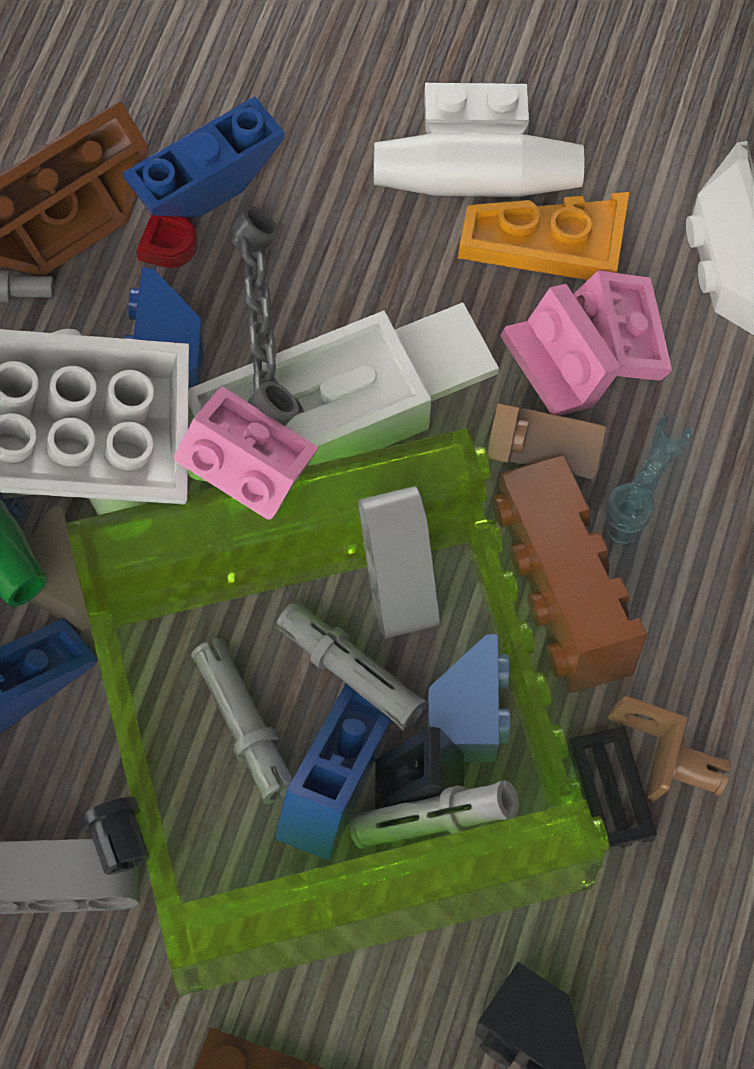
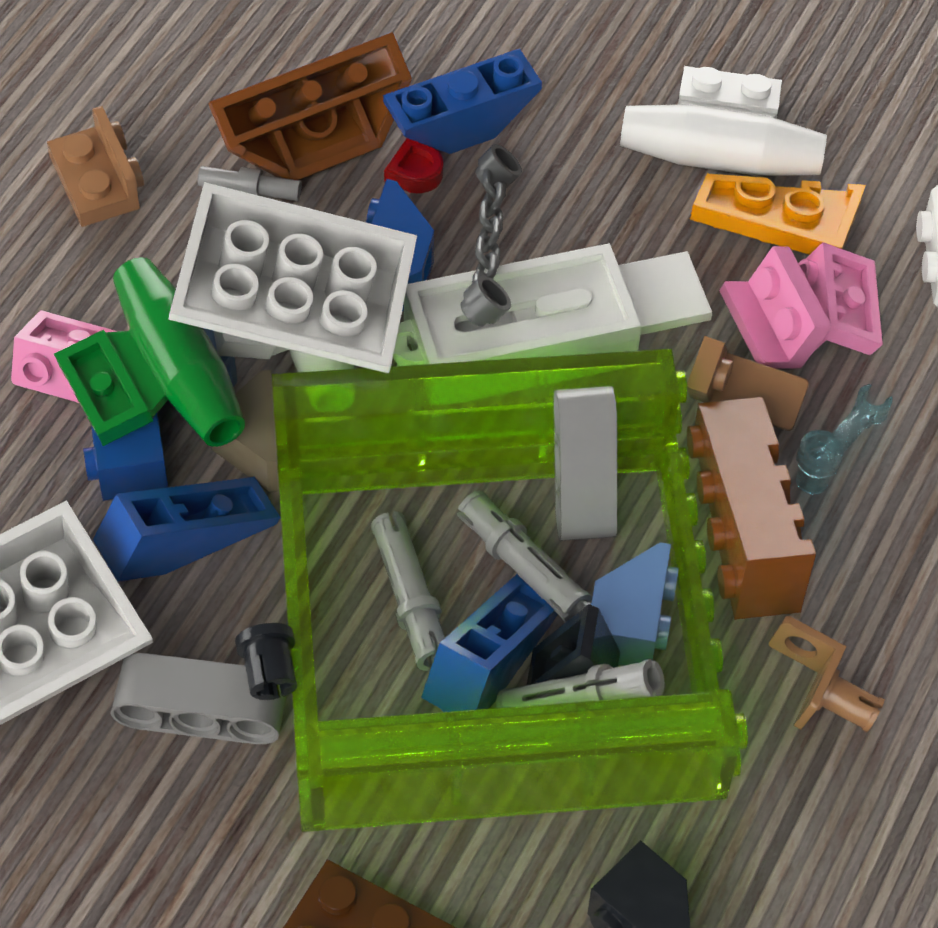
camera: 10 degrees right, 10 degrees down
(244, 452) = (451, 333): bright pink bracket -> none
(624, 835) = (766, 751): black tile -> none

